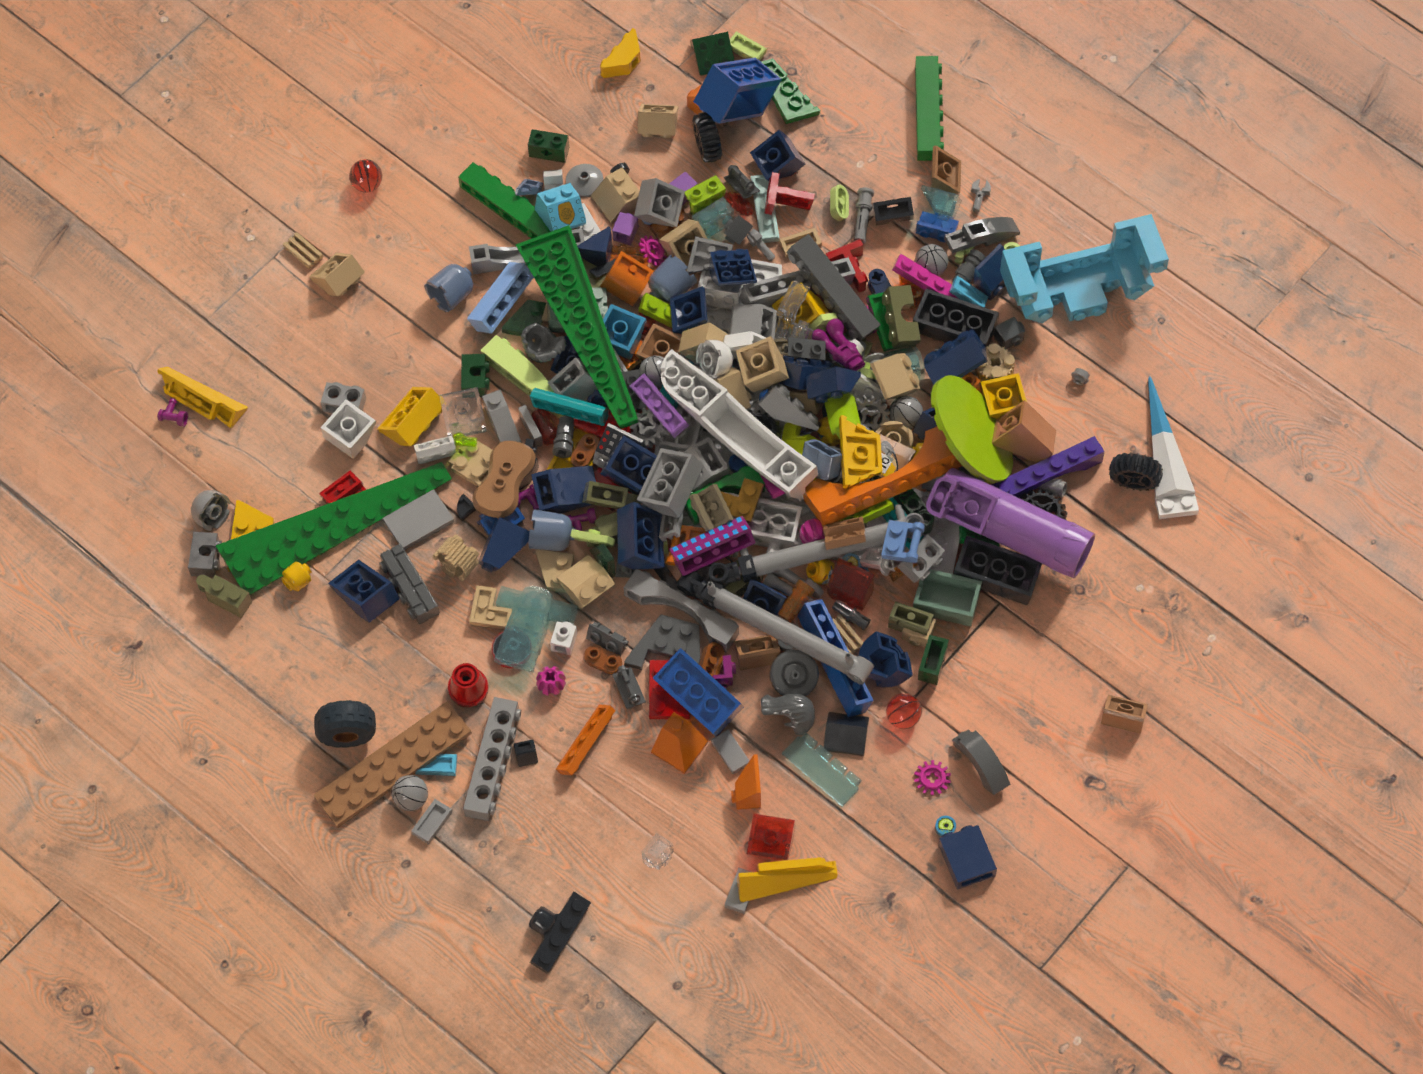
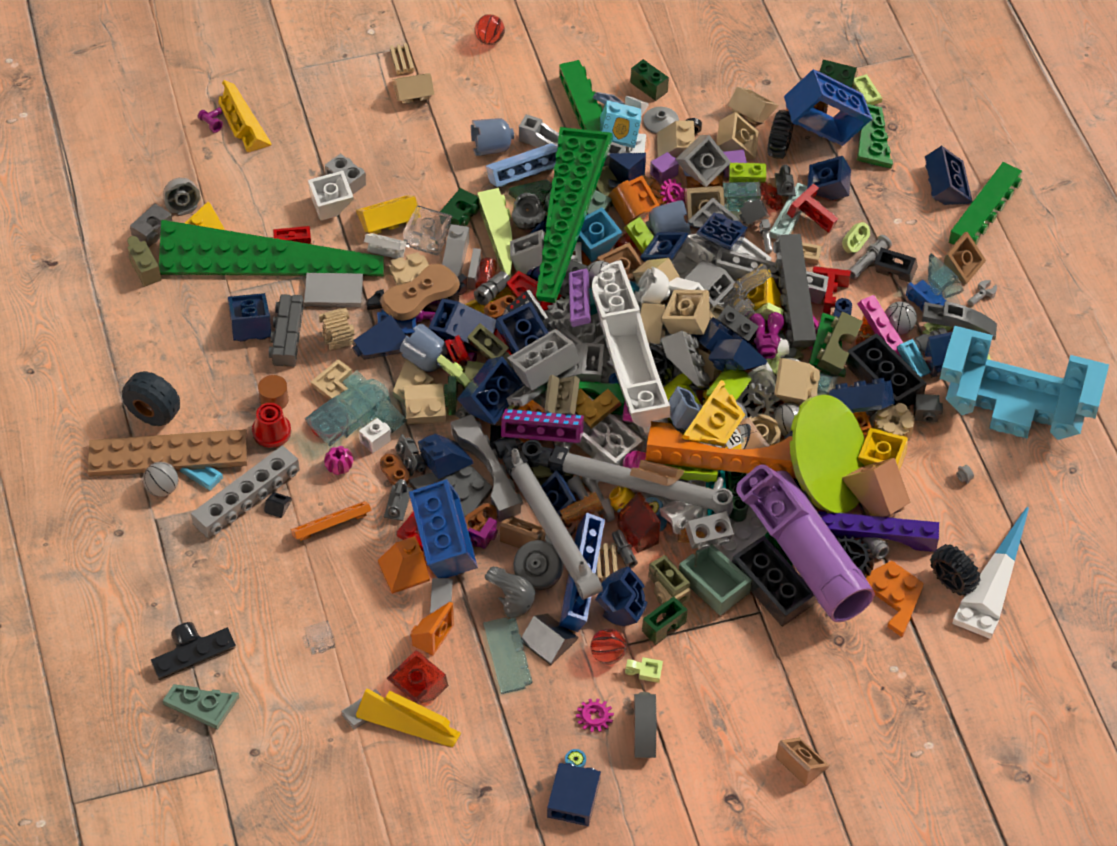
camera: 30 degrees right, 10 degrees down
(296, 576) = (206, 277): yellow head -> none
(431, 821) = (163, 512): light grey tile -> none
(444, 651) = (273, 390): none -> dark orange piece
(462, 440) = (410, 248): clear neon green arm -> none
(569, 406) = (511, 265): teal brick -> none
(581, 513) = (459, 349): none -> red wheel
(605, 972) = (201, 705): none -> sand green wing
(623, 57) = (760, 48): yellow slope -> none
(639, 622) = (443, 455): none -> dark blue slope
(667, 160) = (737, 134): none -> tan slope
(876, 97) = (947, 177): none -> dark blue slope
(896, 539) = (696, 500): medium blue plate -> none
(947, 710) = (648, 669): none -> yellowish green plate
(1099, 516) = (898, 590): none -> orange wing

